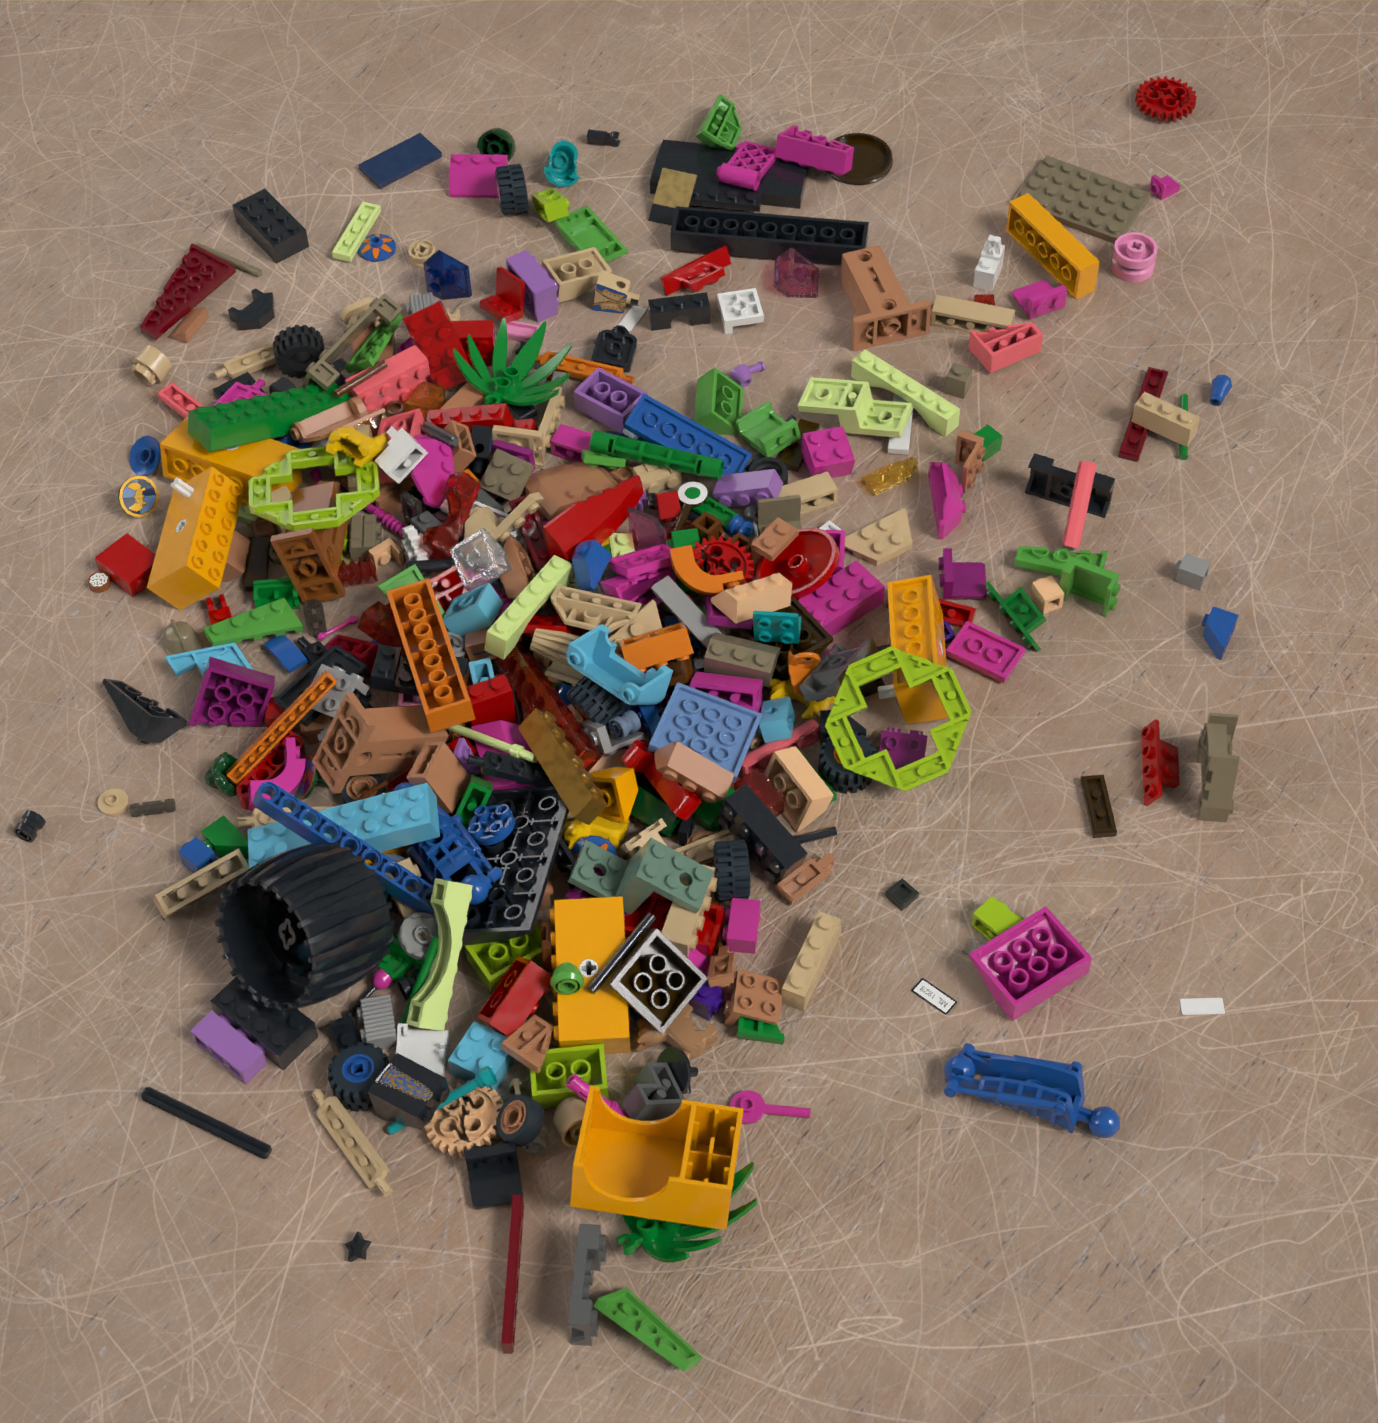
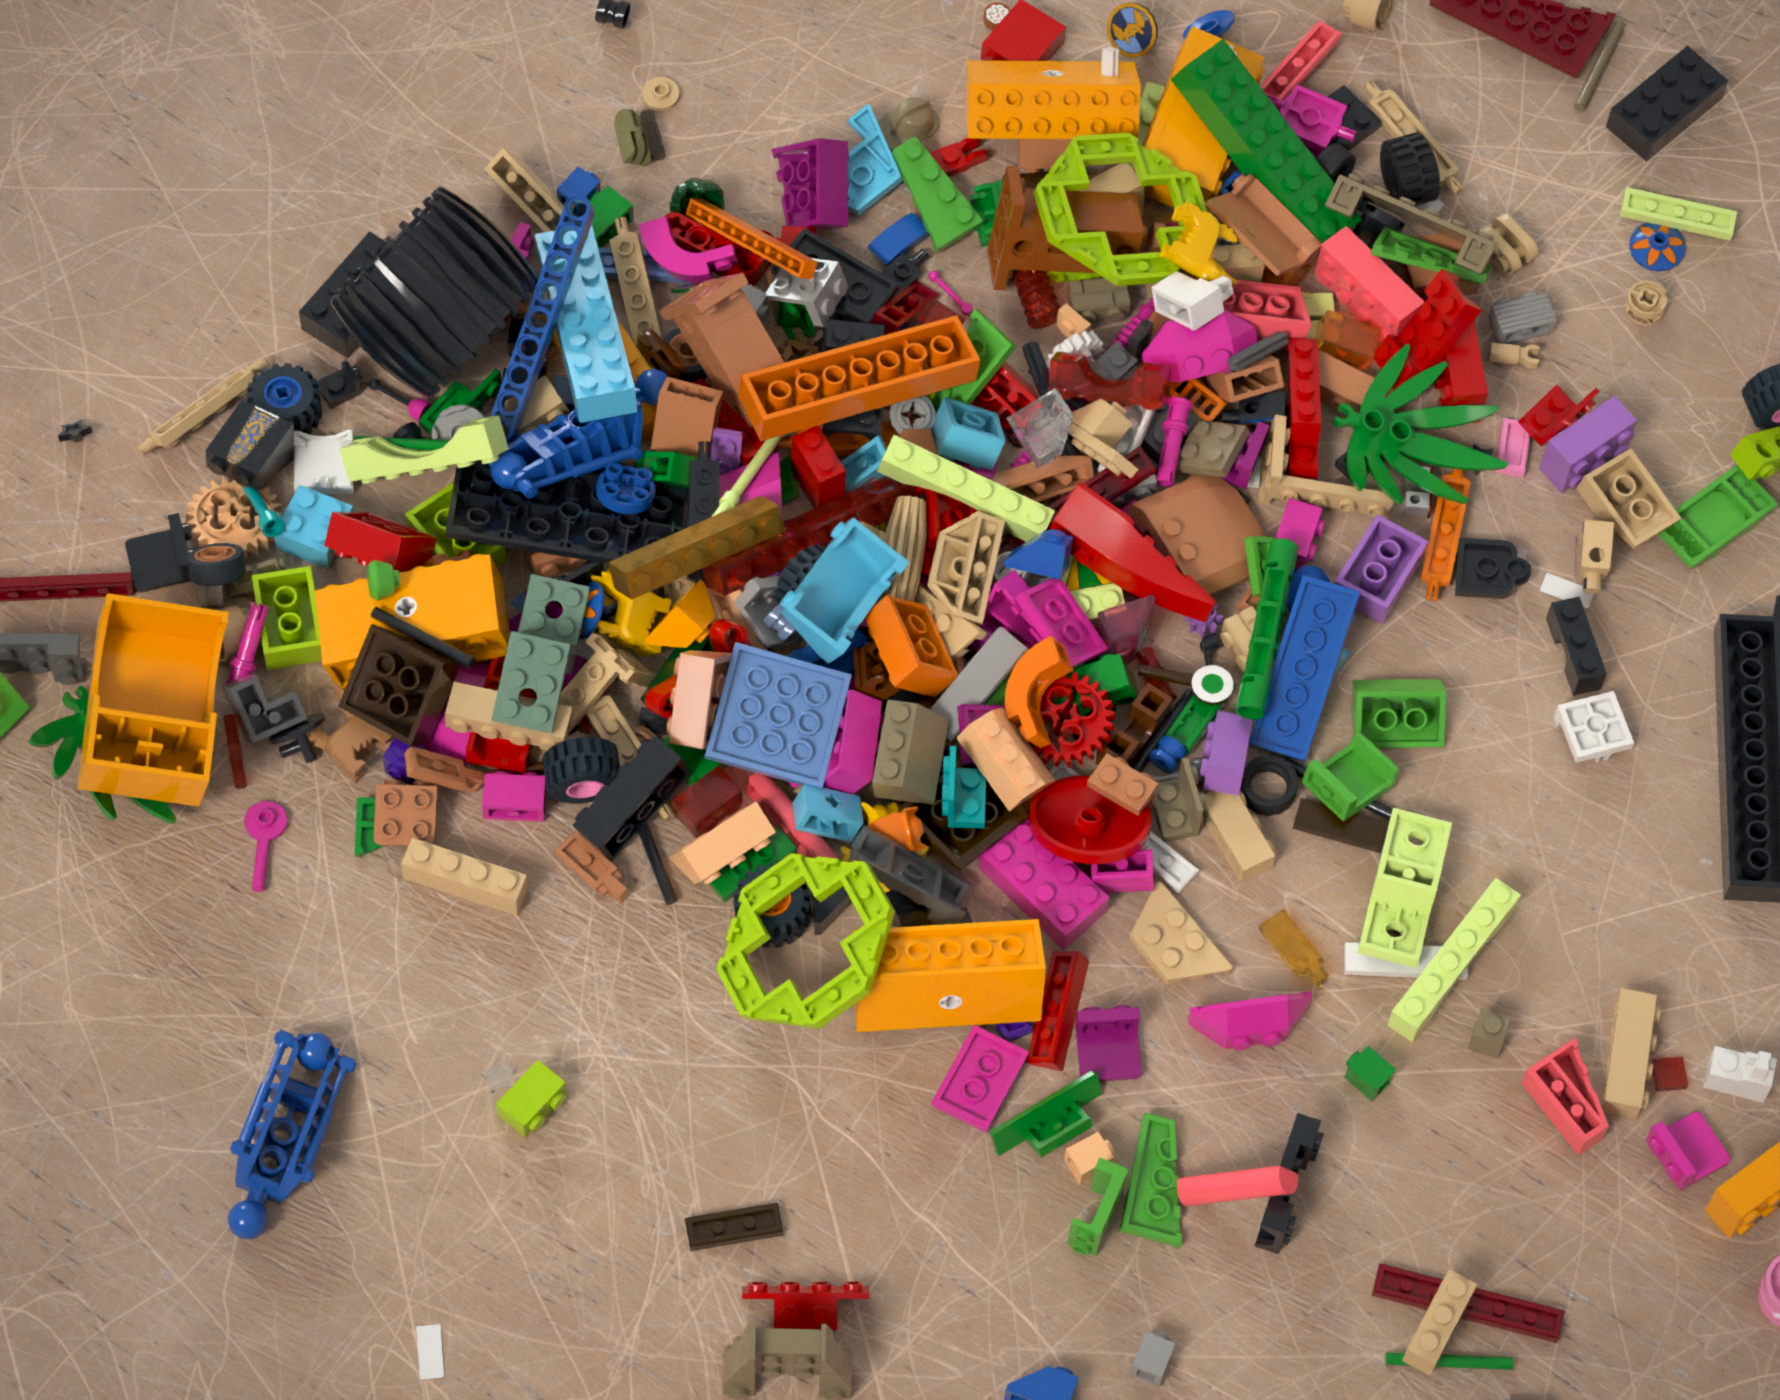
camera: 80 degrees right, 10 degrees up
(142, 714) = (787, 101): black wedge -> none
(153, 819) = (631, 138): none -> olive arm
(190, 325) = (1462, 40): nougat slope -> none
(206, 1122) = (227, 261): black axle -> none
(229, 1046) = (318, 262): medium lavender brick -> none
(256, 314) = (1497, 116): black piece -> none
(311, 618) = (962, 264): clear smoke beam -> none
(360, 378) = (1345, 242): reddish brown bar -> none
(378, 1021) = (361, 412): light grey brick -> none
(394, 408) = (1330, 301): reddish brown tile -> none
(447, 277) = (1589, 331): clear blue slope -> none
(489, 492) = (1174, 428): none -> dark pink pin
(530, 1043) = (316, 563): nougat wing -> none
(668, 506) = (1192, 654): red brick -> none
(698, 272) = (1663, 668): red bracket -> none
(741, 373) = (1463, 740): medium lavender bar -> none
(795, 275) = (1678, 802): clear pink slope -> none
(827, 451) = (1314, 856): dark pink brick -> none
(879, 301) = (1634, 910): nougat brick -> none
(902, 894) = (578, 984): pearl dark grey tile -> none
(903, 747) = (804, 962): magenta bracket -> none
(934, 996) = (431, 1028): white sticker -> none
(969, 454) = (1316, 1051): nougat bracket -> none
(1030, 963) = (468, 1129): dark pink slope -> none

